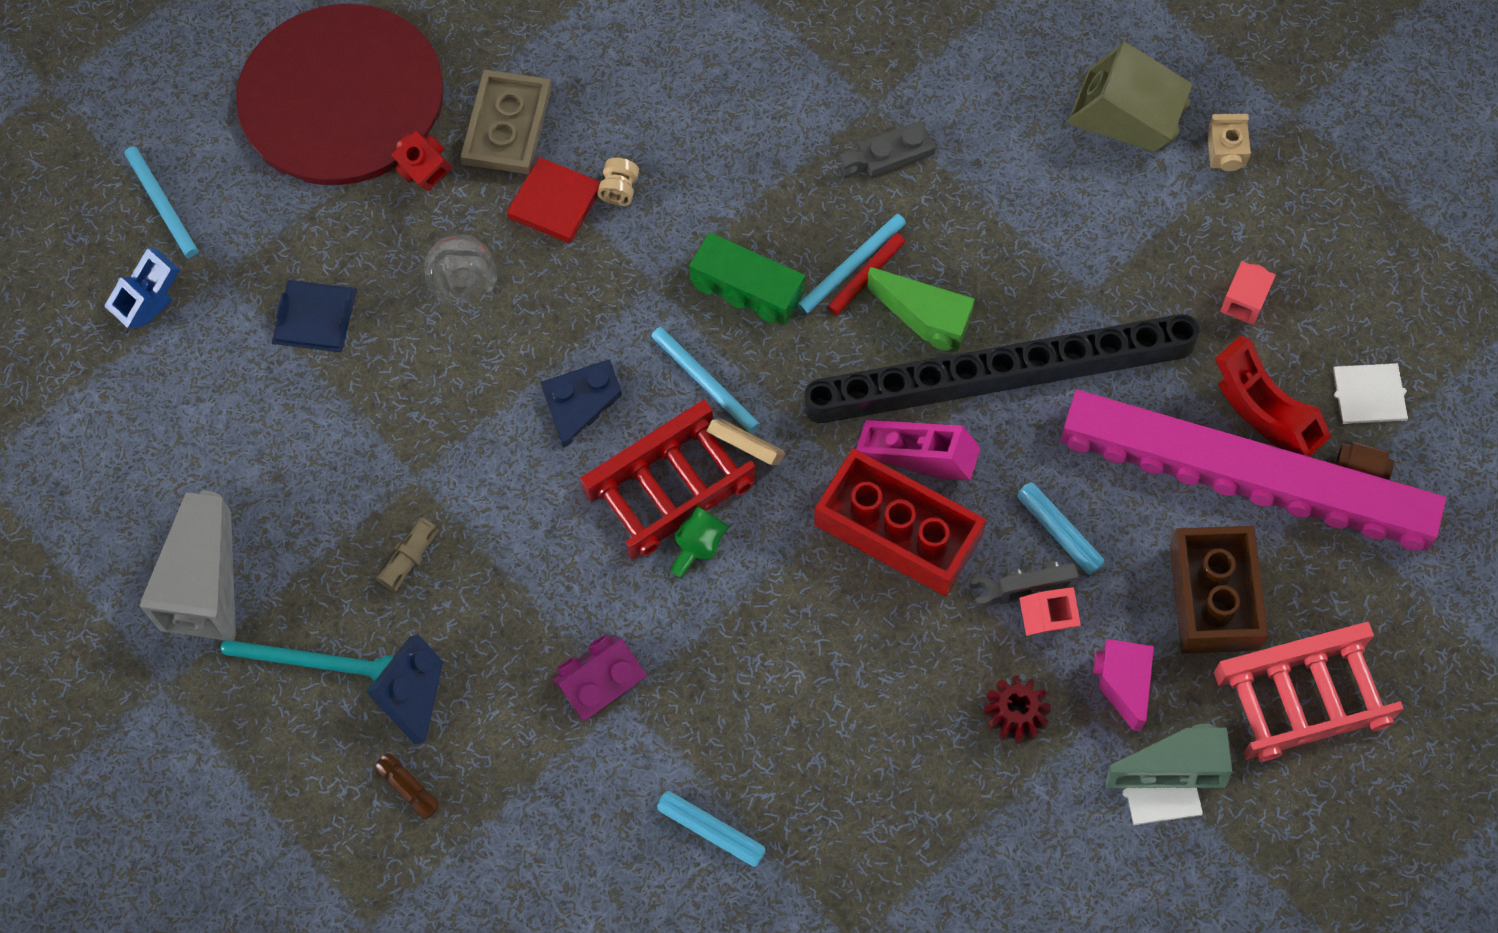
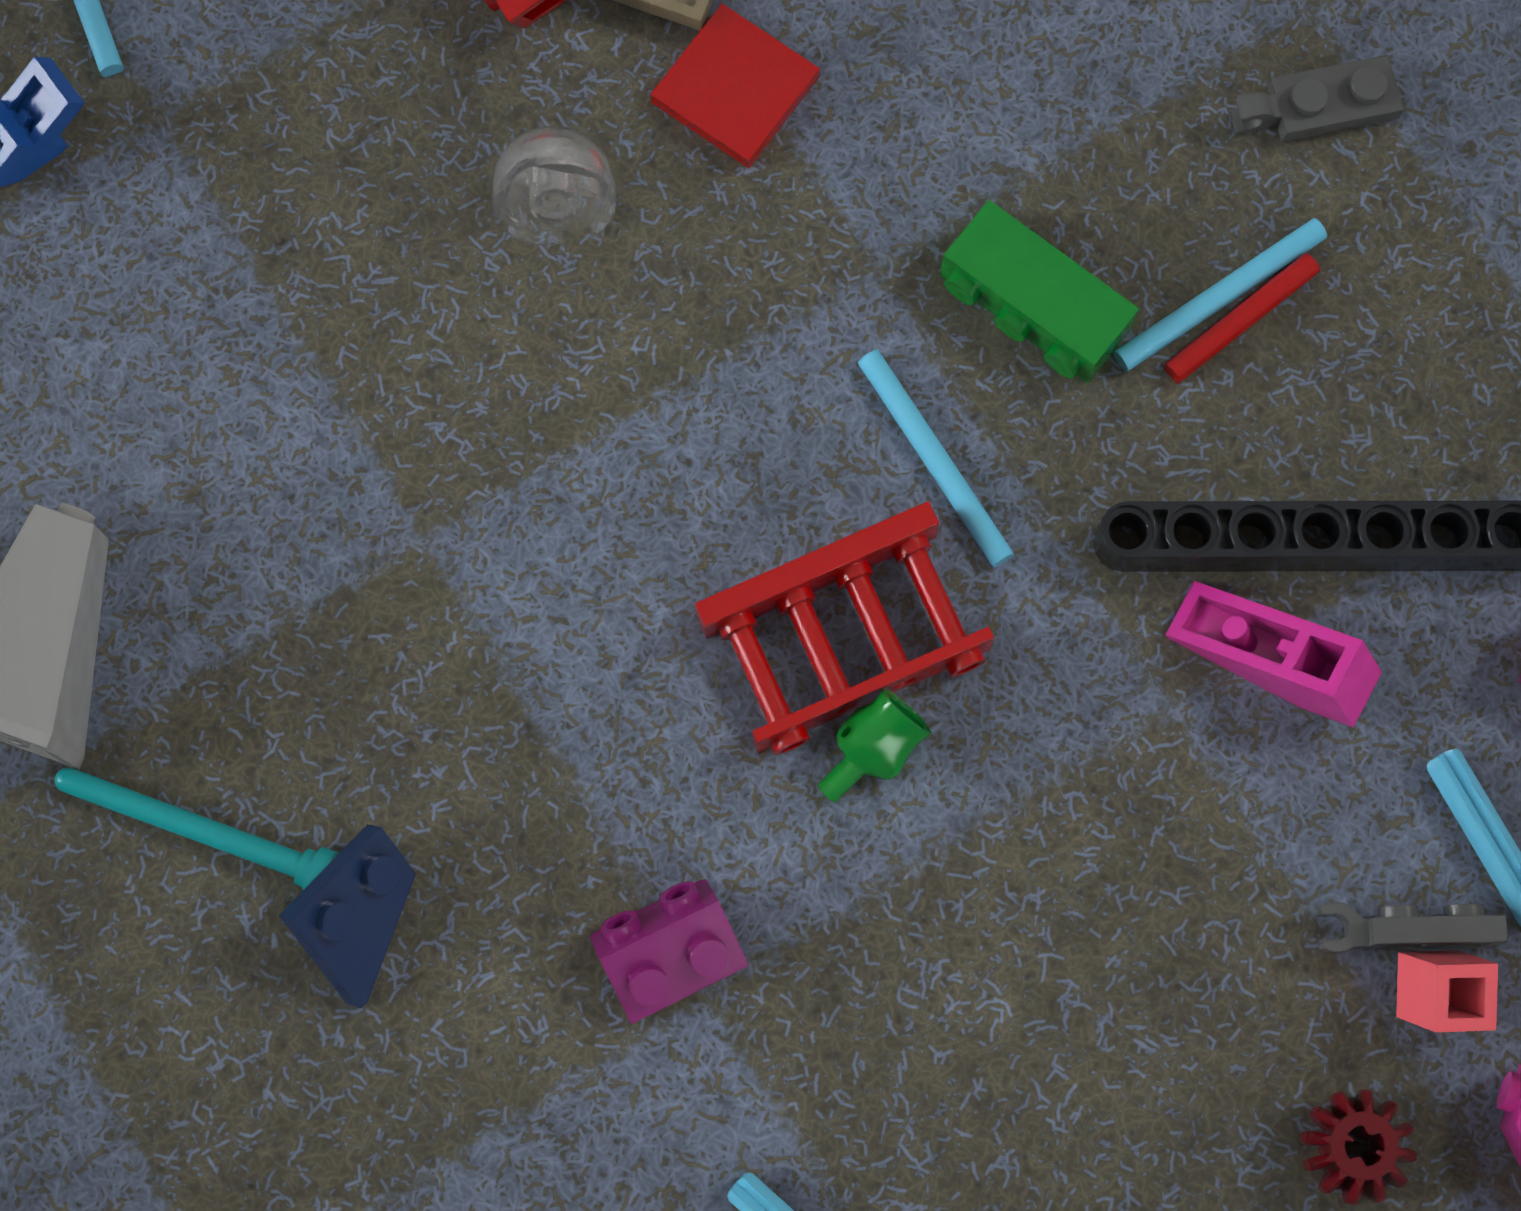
camera: 10 degrees right, 10 degrees up
(314, 316) = (298, 219): dark blue piece -> none
(407, 554) = (387, 675): dark tan pin -> none
(407, 786) = (322, 1077): reddish brown axle -> none
(580, 397) = (720, 450): dark blue wing -> none
(618, 181) = (849, 74): tan wheel -> none
(746, 441) = (985, 586): tan tile -> none
(899, 522) = (1222, 782): red brick -> none
(928, 310) = (1337, 407): bright green slope -> none

